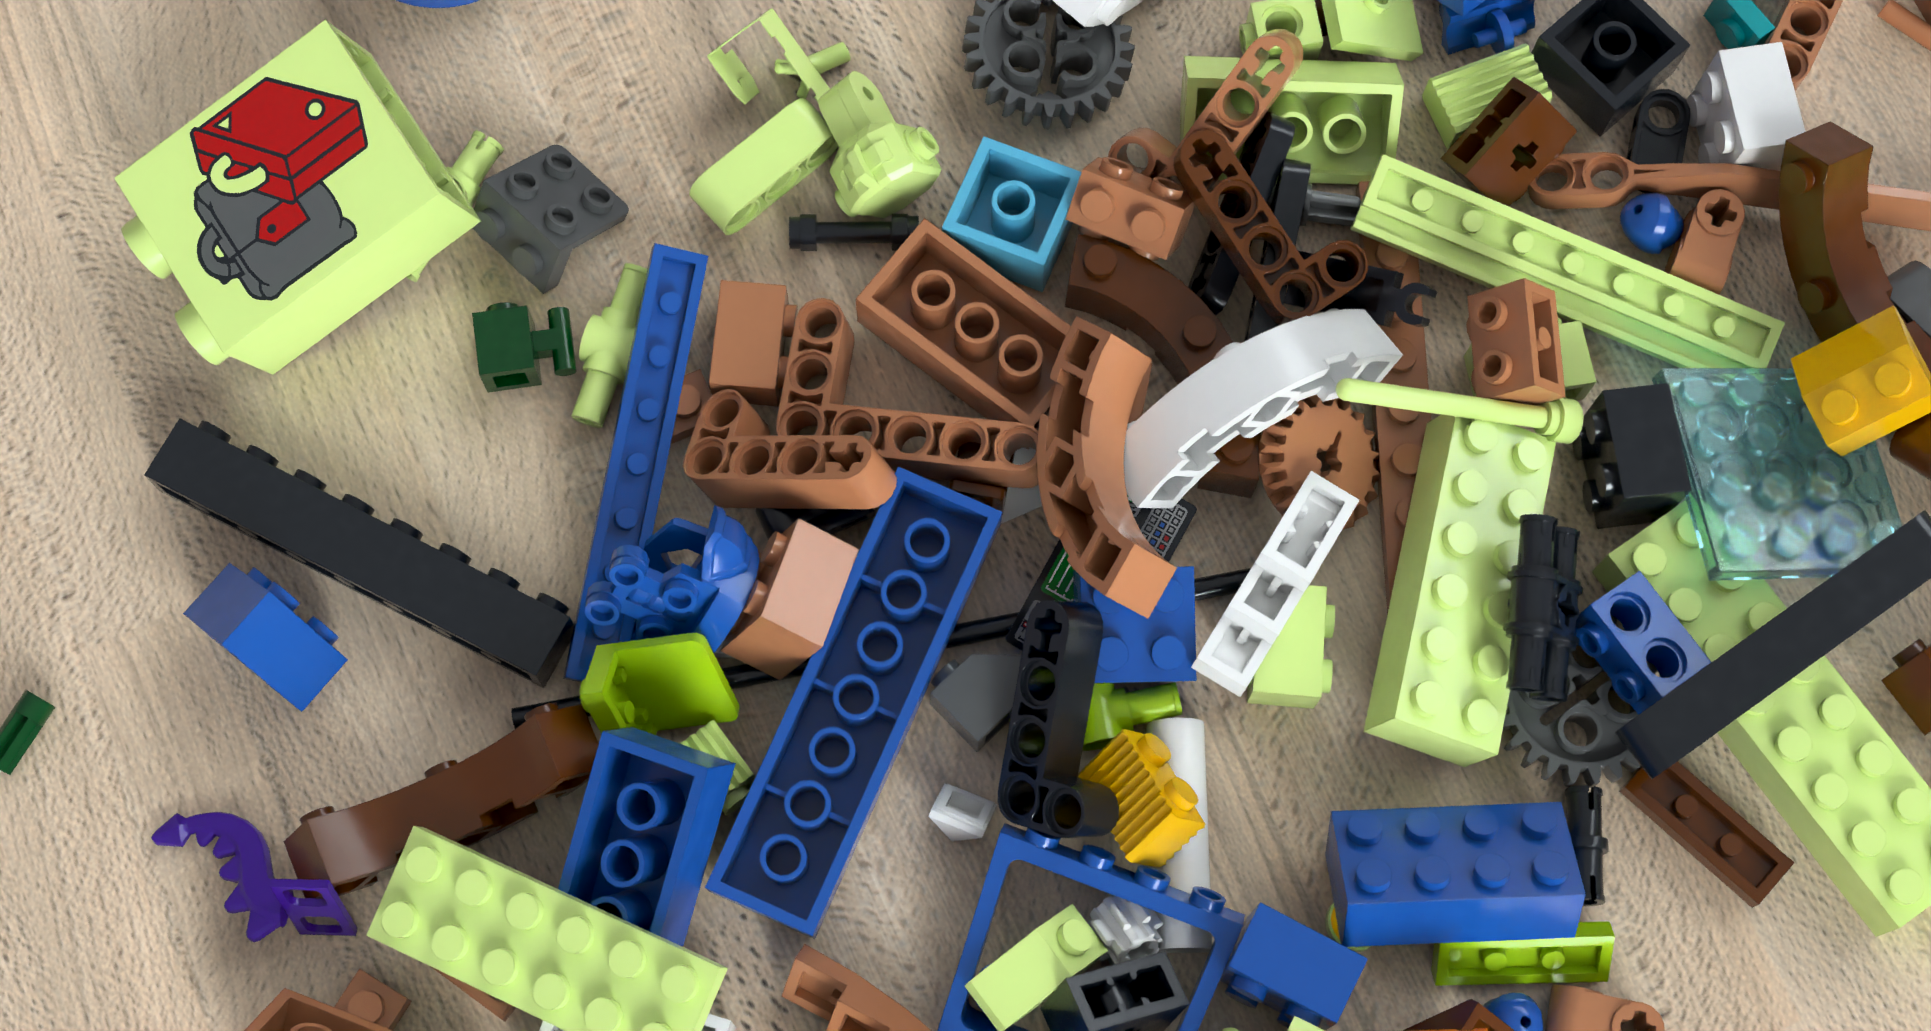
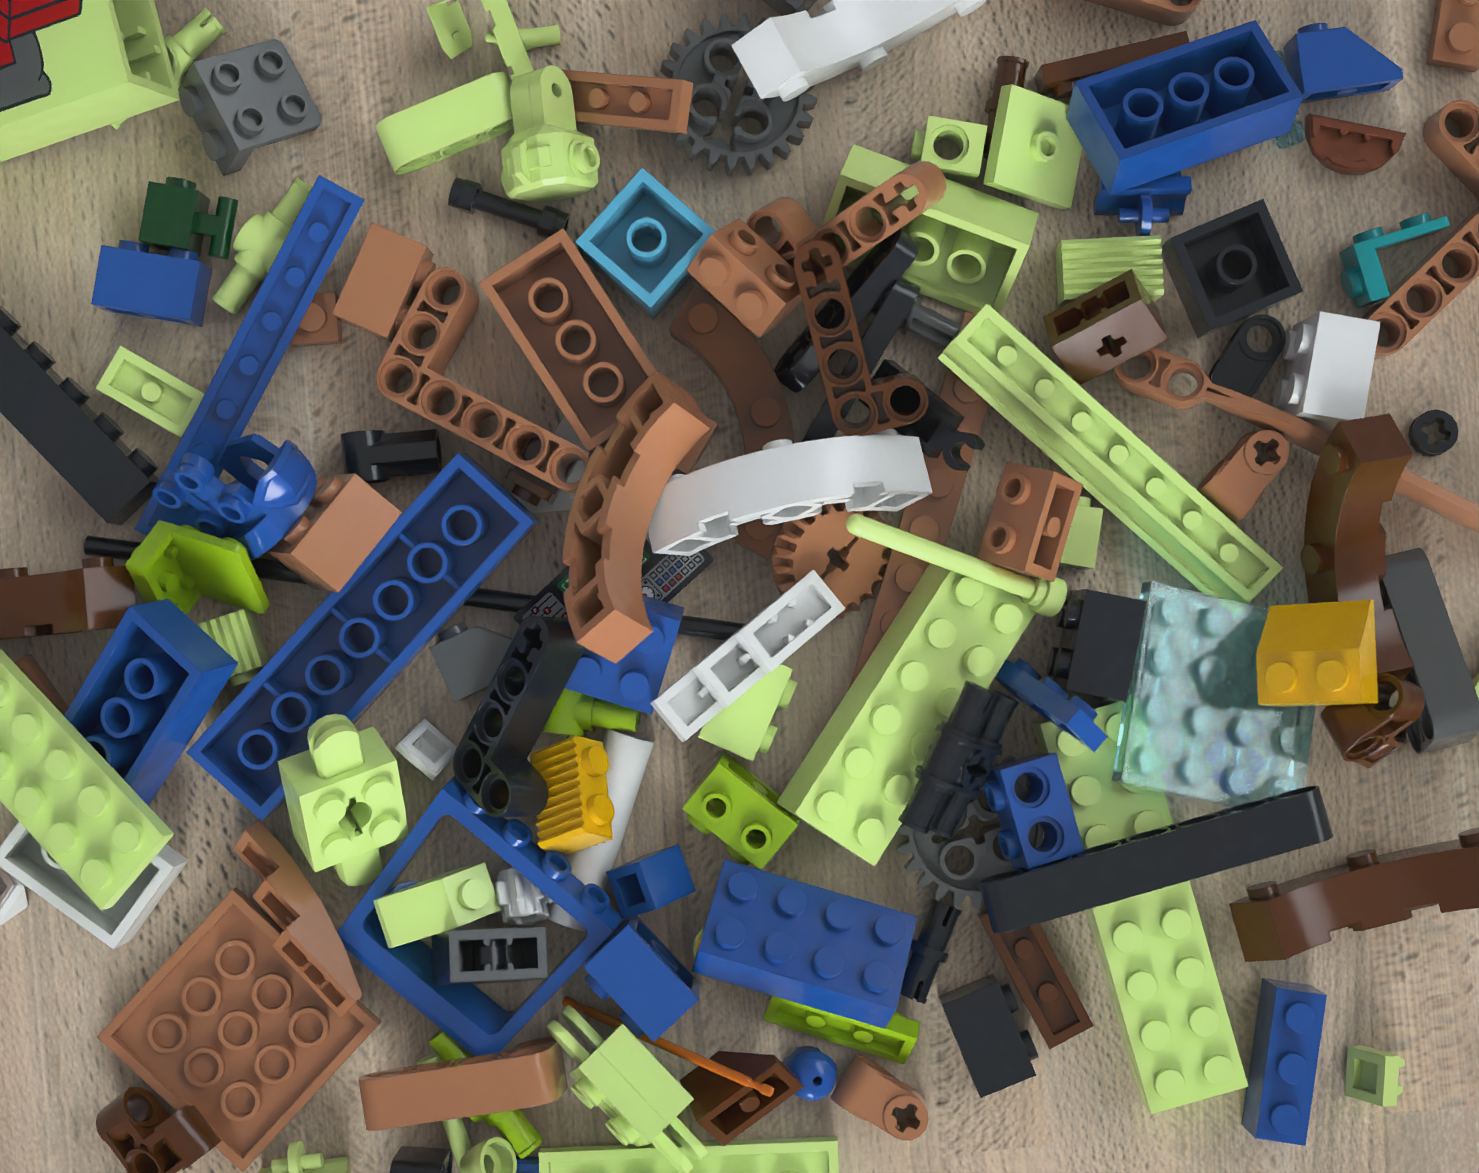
camera: 20 degrees right, 15 degrees up
(503, 421) = (152, 284): none -> blue brick
(536, 532) = (150, 391): none -> yellowish green plate
(747, 468) = (331, 393): nougat beam -> none
(880, 904) = (344, 799): none -> yellowish green brick
(948, 80) = (631, 101): none -> nougat plate
(1259, 866) = (650, 881): none -> blue brick
(1328, 755) = (739, 812): none -> lime brick
(1621, 522) = (1051, 702): none -> blue plate
(1651, 222) = (1206, 436): blue piece -> none
(1686, 913) = (988, 1035): none -> black brick
(1884, 142) = (1419, 439): none -> black bush

